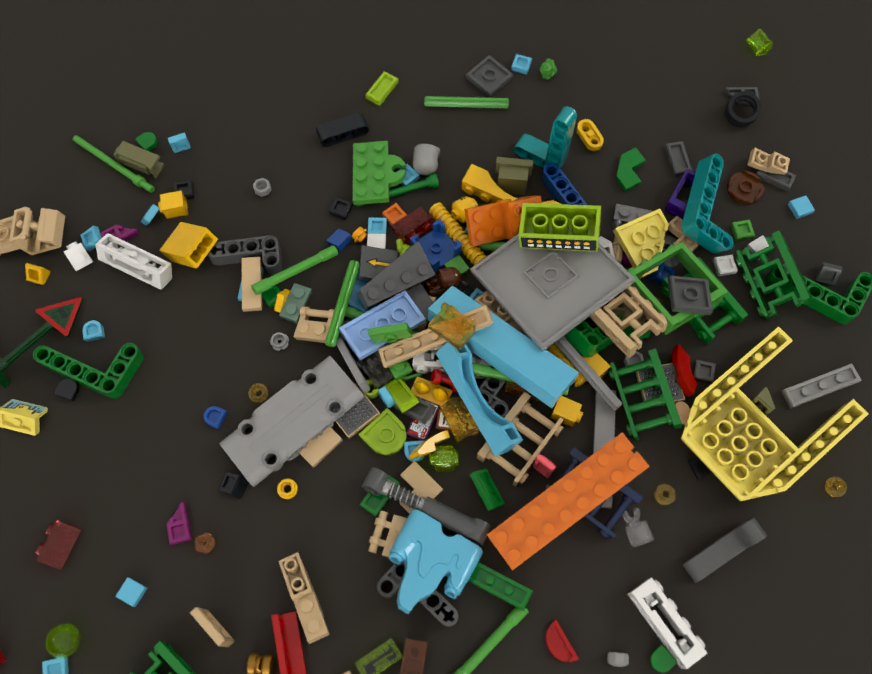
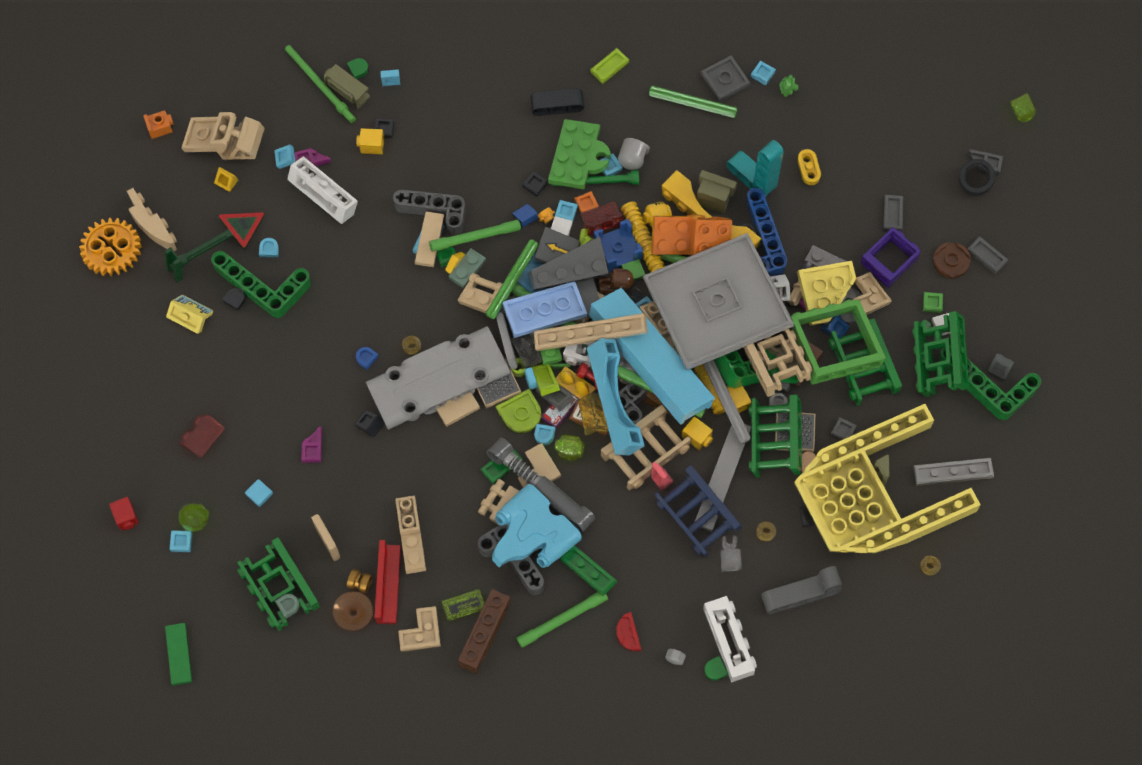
camera: 15 degrees right, 0 degrees up
(78, 255) = (268, 171): white bracket -> none
(149, 215) = (345, 146): medium azure tile -> none
(188, 244) = (378, 186): yellow brick -> none
(209, 545) = (332, 472): clear orange plate -> none
(262, 187) = (462, 143): light grey tile -> none
(277, 337) = (443, 297): light grey plate -> none
(284, 483) = (418, 433): yellow plate -> none
(390, 333) = (548, 318): bright green plate -> none
(428, 445) = (557, 431): yellow slope -> none
(453, 326) = (607, 326): clear yellow bracket -> none
(487, 489) = (601, 485): green plate -> none
(560, 227) = (737, 256): lime brick -> none
(567, 501) = (669, 509): orange piece -> none
(625, 175) = (839, 205): green tile -> none
(683, 370) = (822, 418): red tile -> none
(690, 295) = (844, 352): dark grey tile -> none
(696, 219) = (893, 262): teal beam -> none
(725, 265) = (901, 333): white tile -> none
(769, 163) = (982, 240): tan slope -> none
(801, 207) = (1001, 293): medium azure tile -> none

